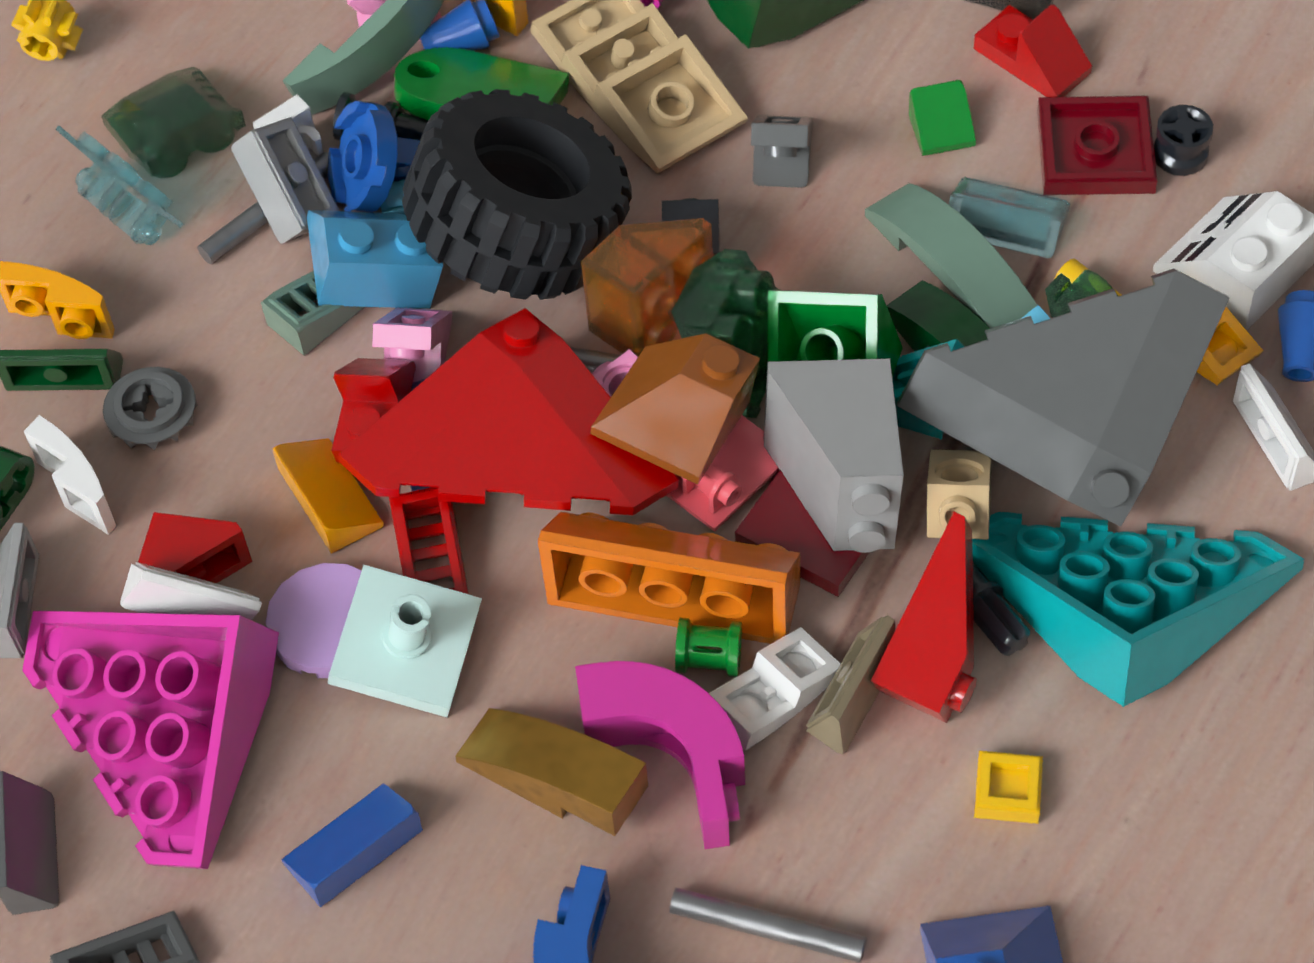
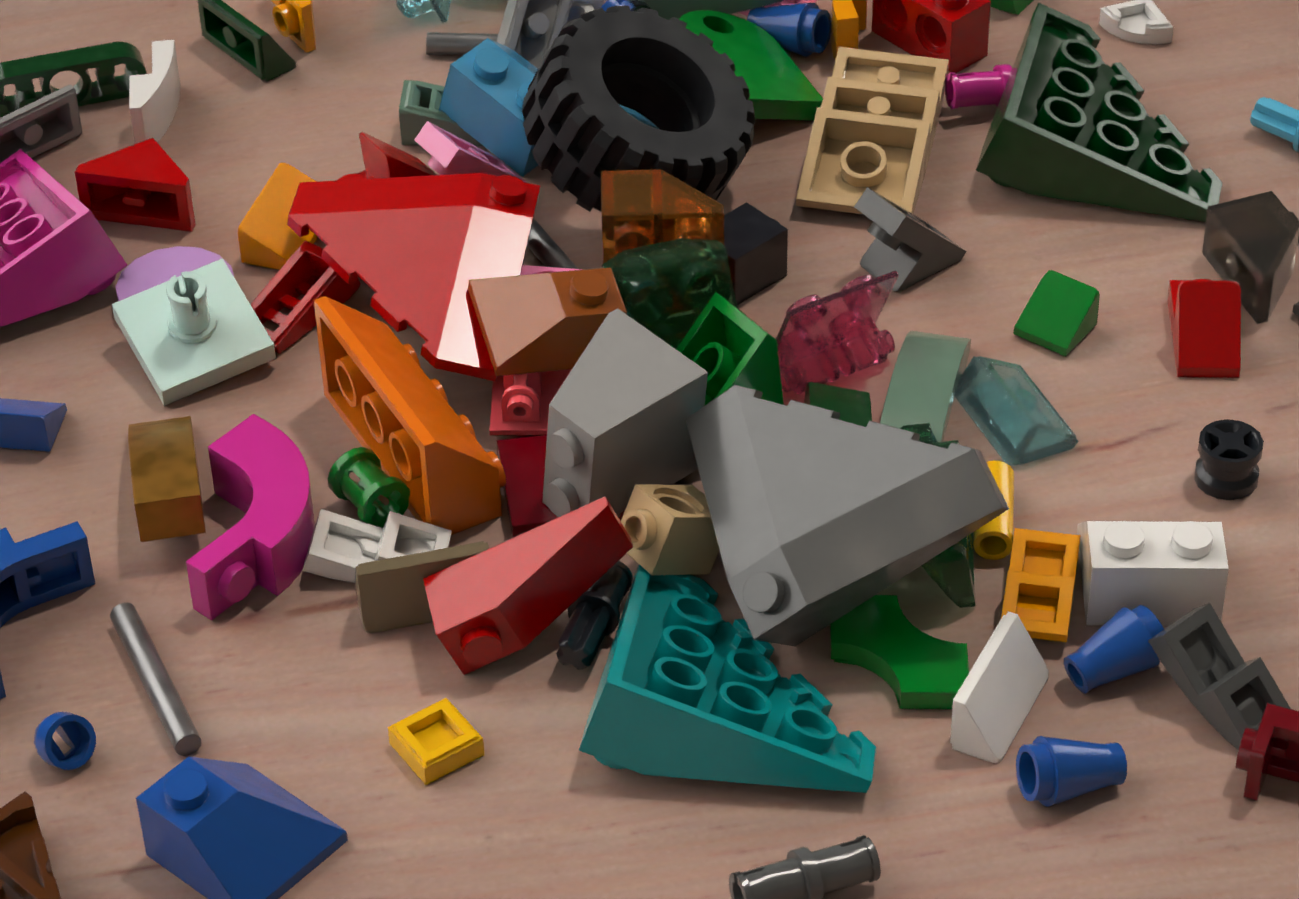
camera: 45 degrees right, 15 degrees down
(129, 399) = (275, 96): dark grey gear -> none
(168, 592) = (92, 185): white slope -> none
(850, 246) = (834, 333): none -> clear pink hinge
(1096, 145) = (1153, 418): dark red tile -> none
(1207, 452) = (914, 664): none -> green tile

